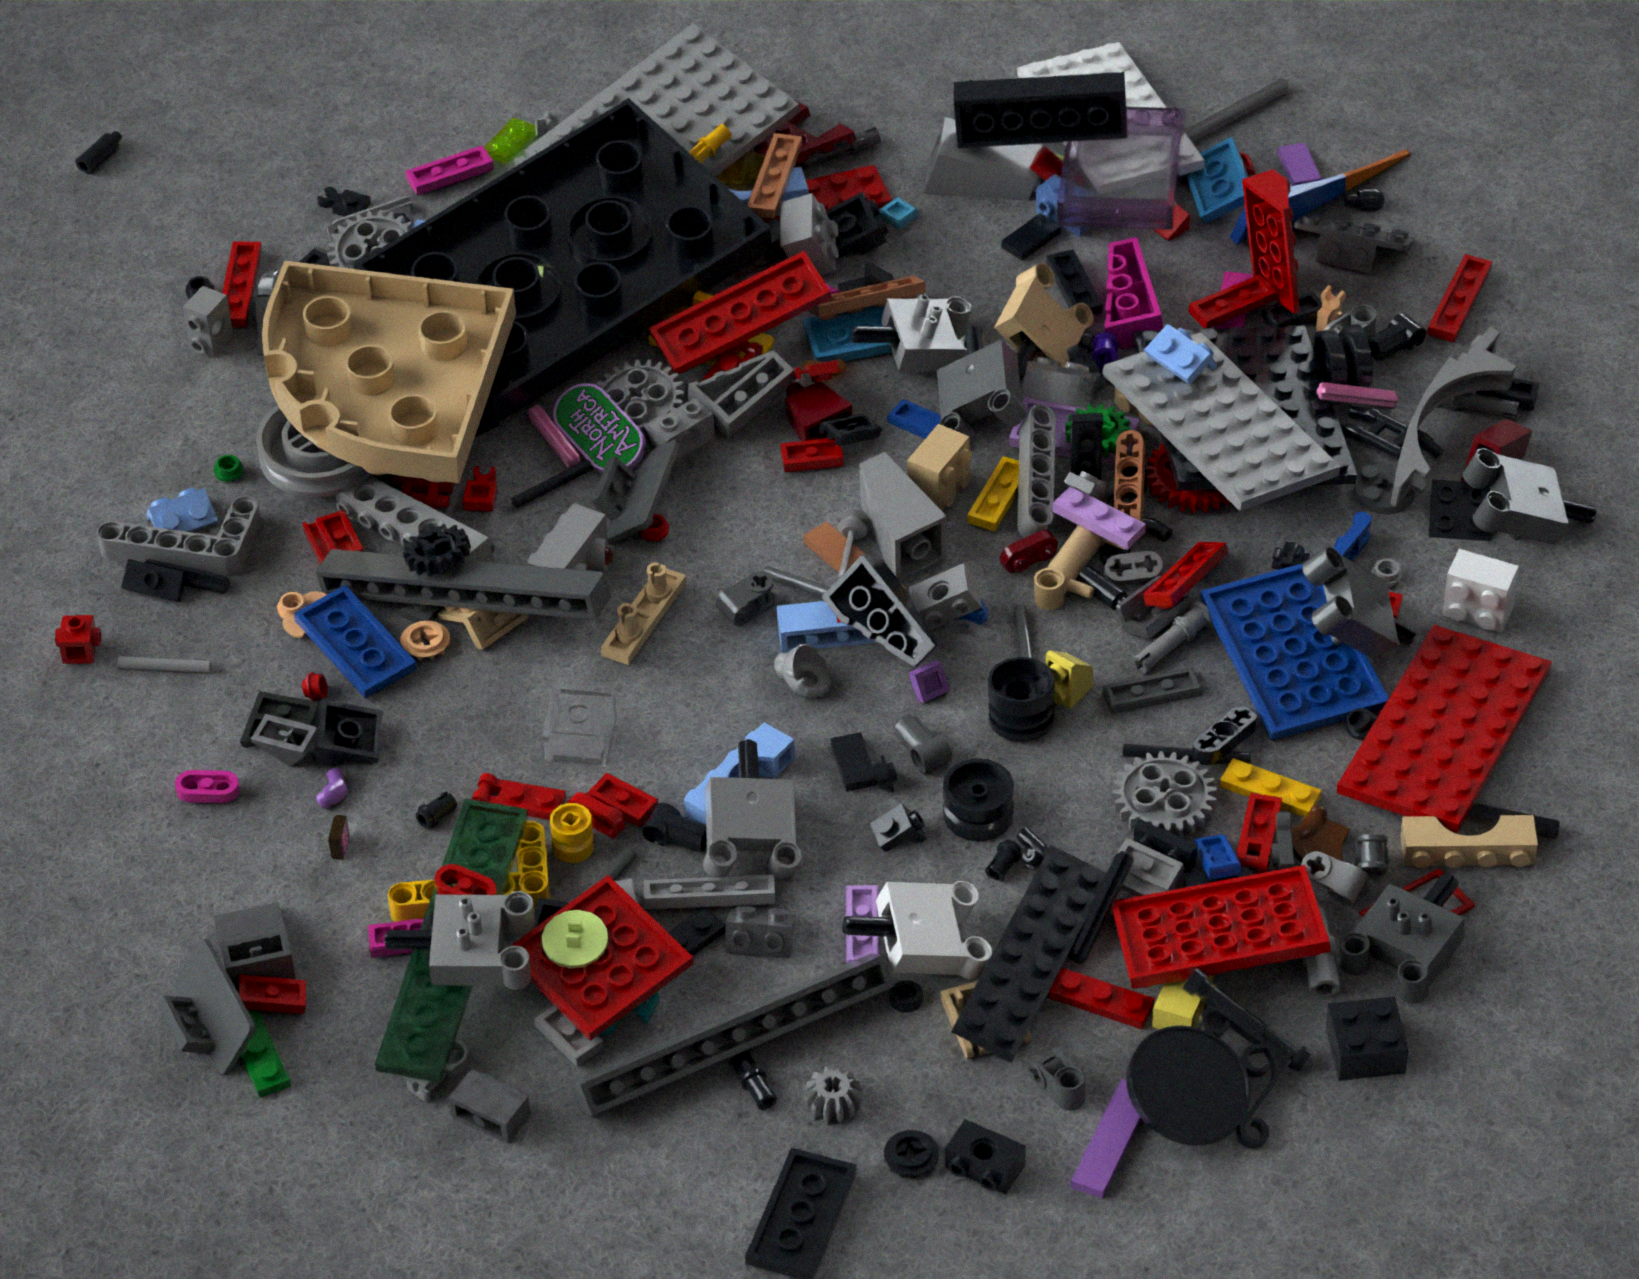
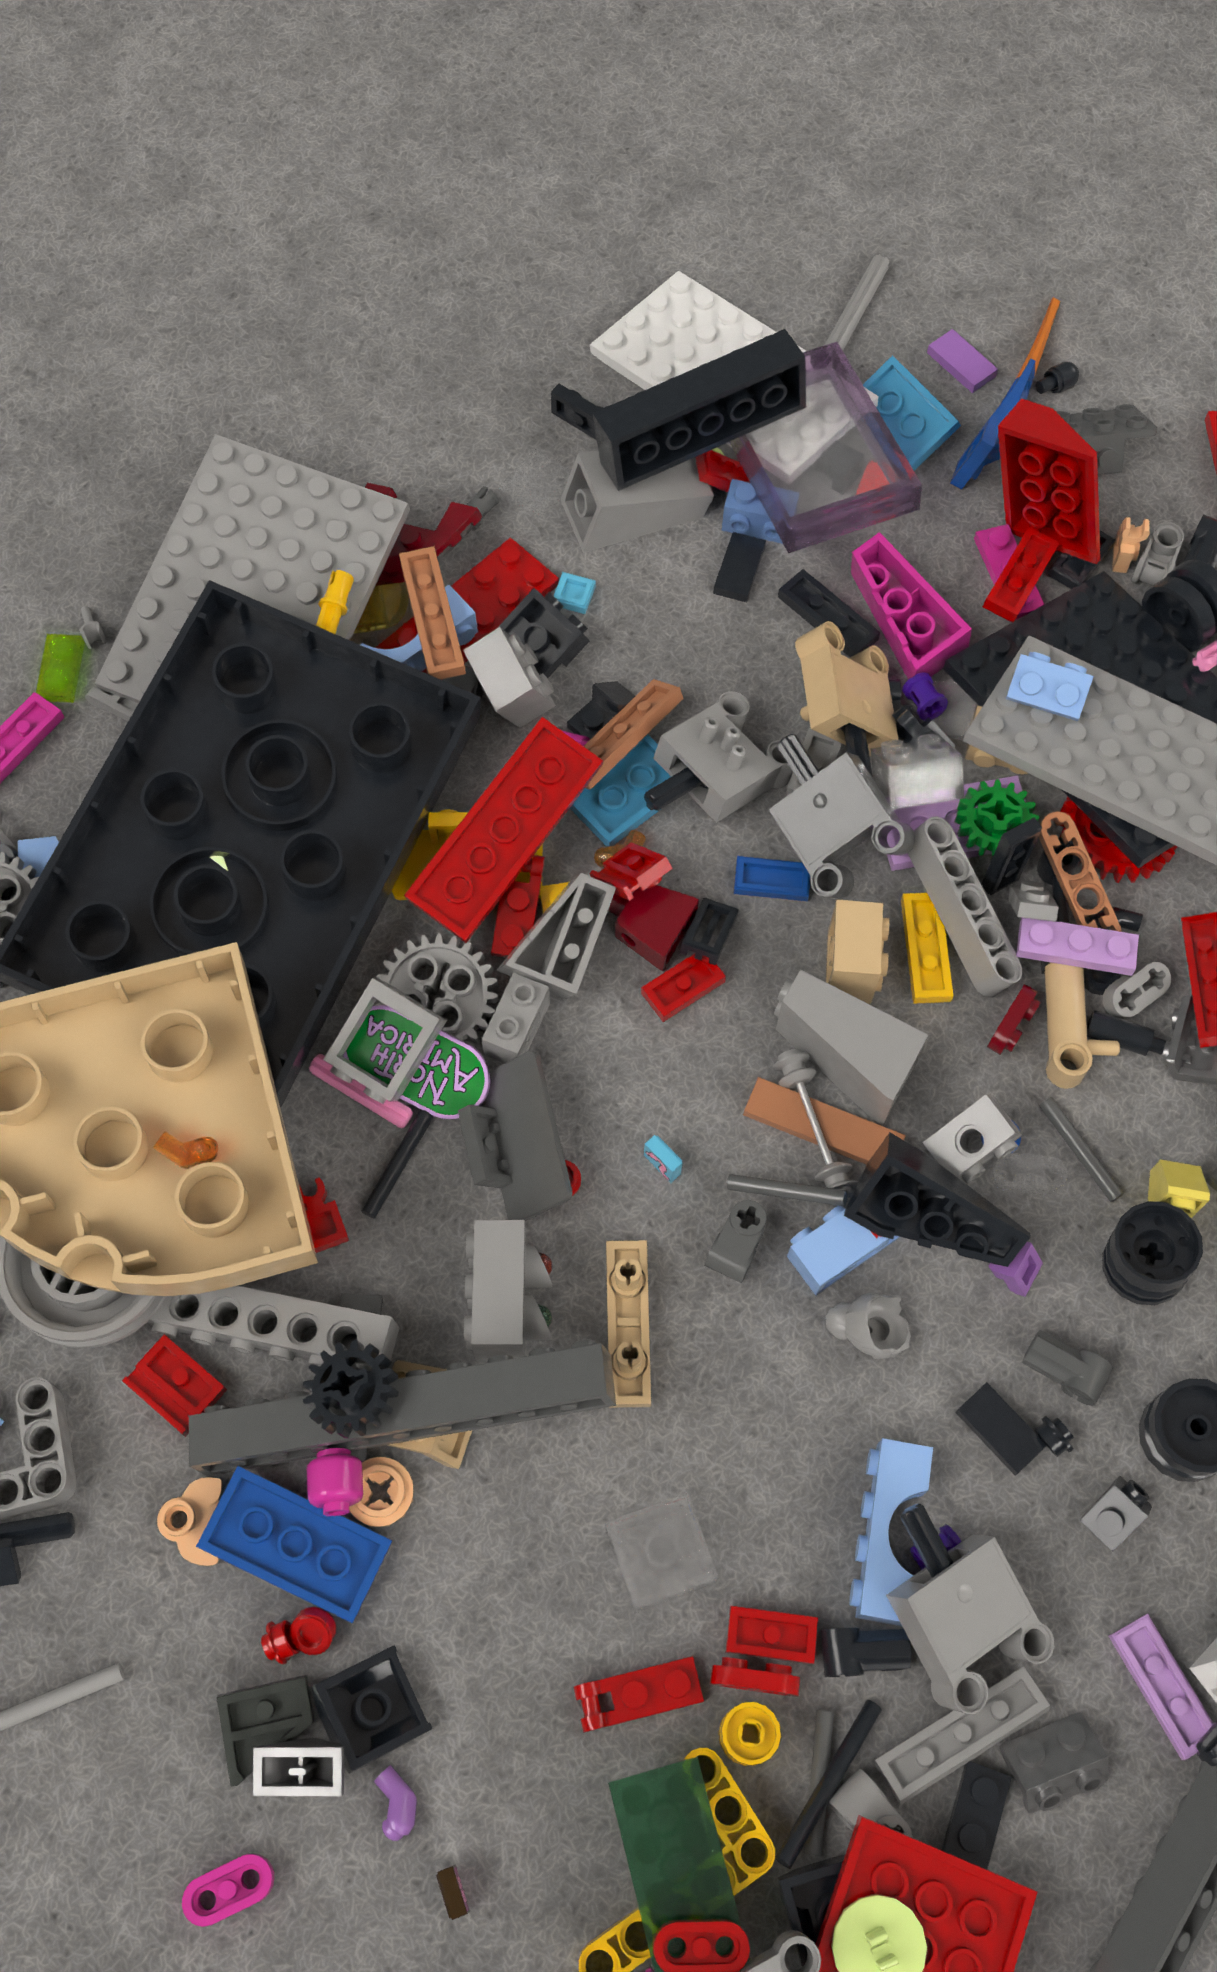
camera: 30 degrees left, 20 degrees up
(338, 687) = (312, 1631): none -> red tile
(399, 613) = (334, 1481): none -> dark pink head
(407, 387) = (189, 1153): none -> clear orange arm
(430, 814) = (549, 1773): black pin -> none
(595, 417) = (408, 1007): none -> light grey window
(617, 874) = (828, 1784): none -> black bar
(728, 538) = (663, 1158): none -> medium azure tile

